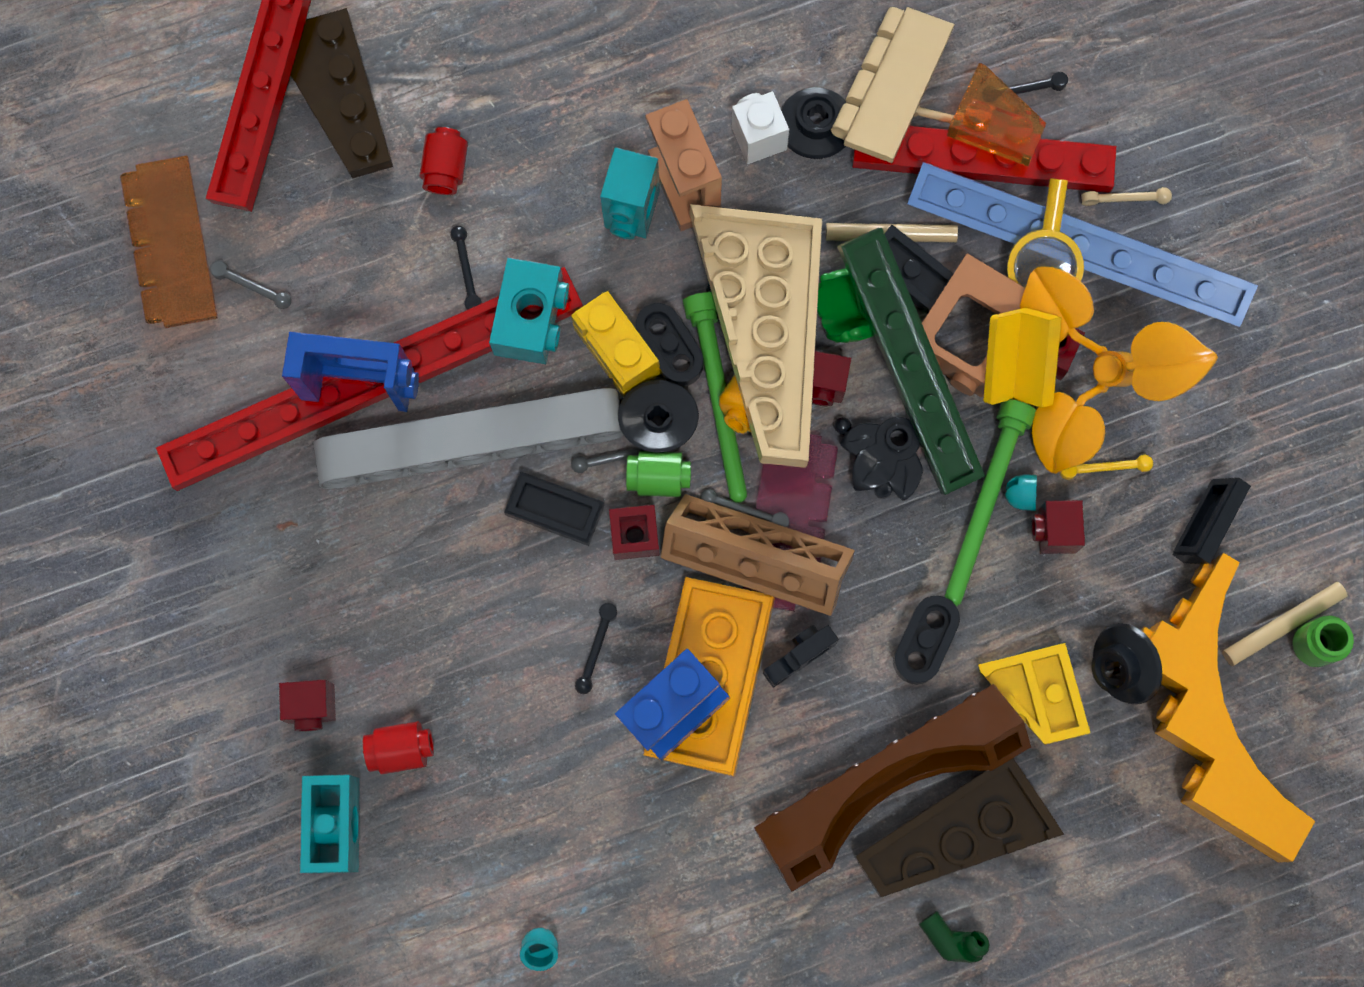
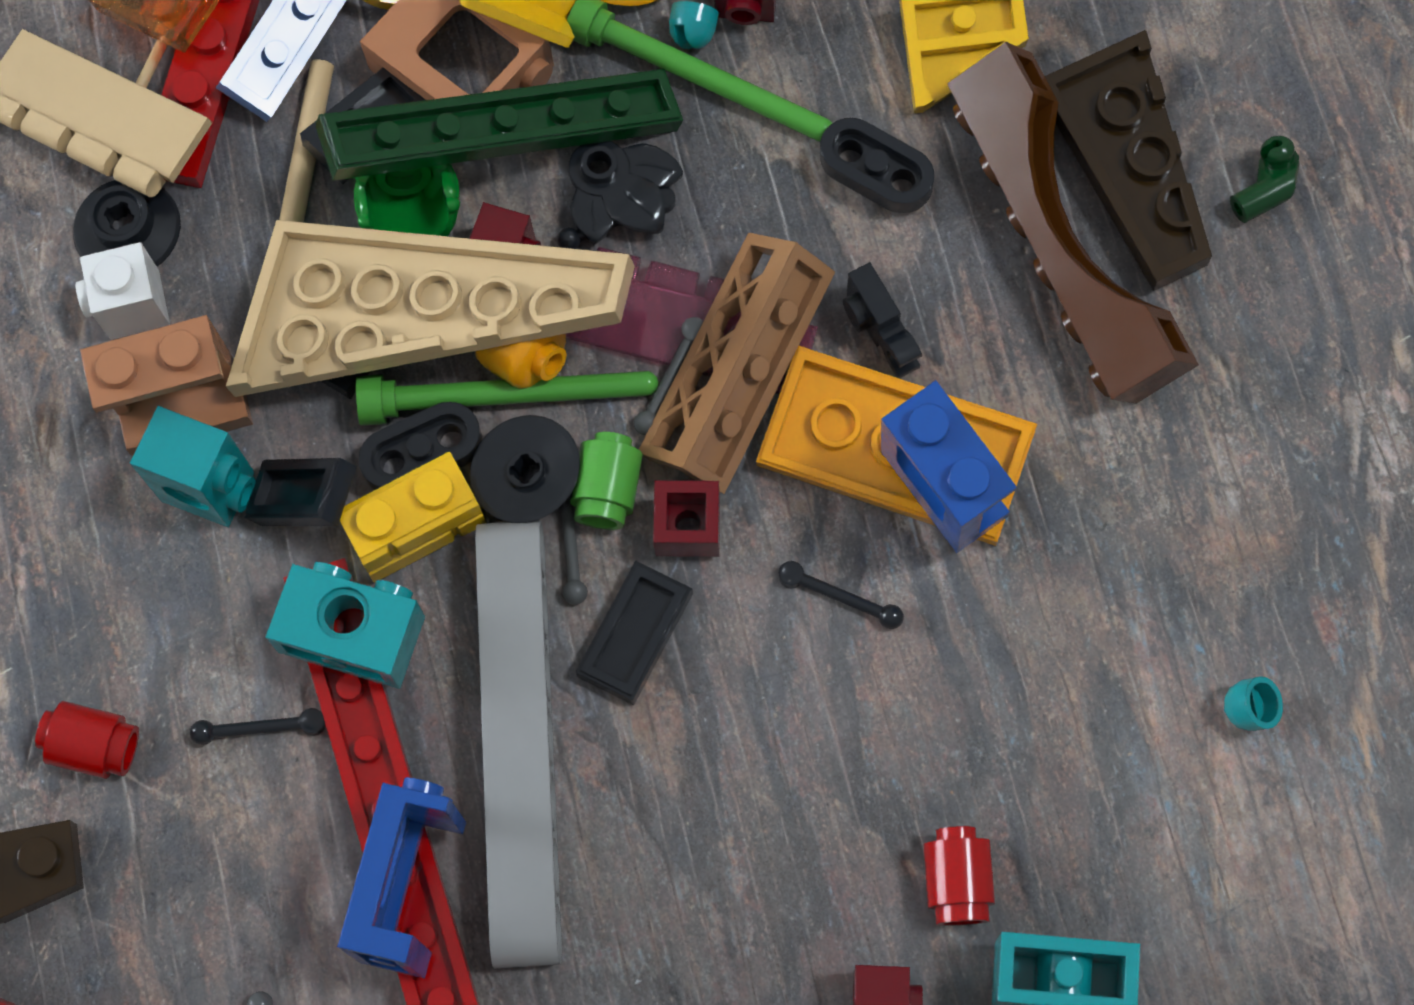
camera: 80 degrees left, 5 degrees down
(623, 267) = (300, 492): none -> black tile

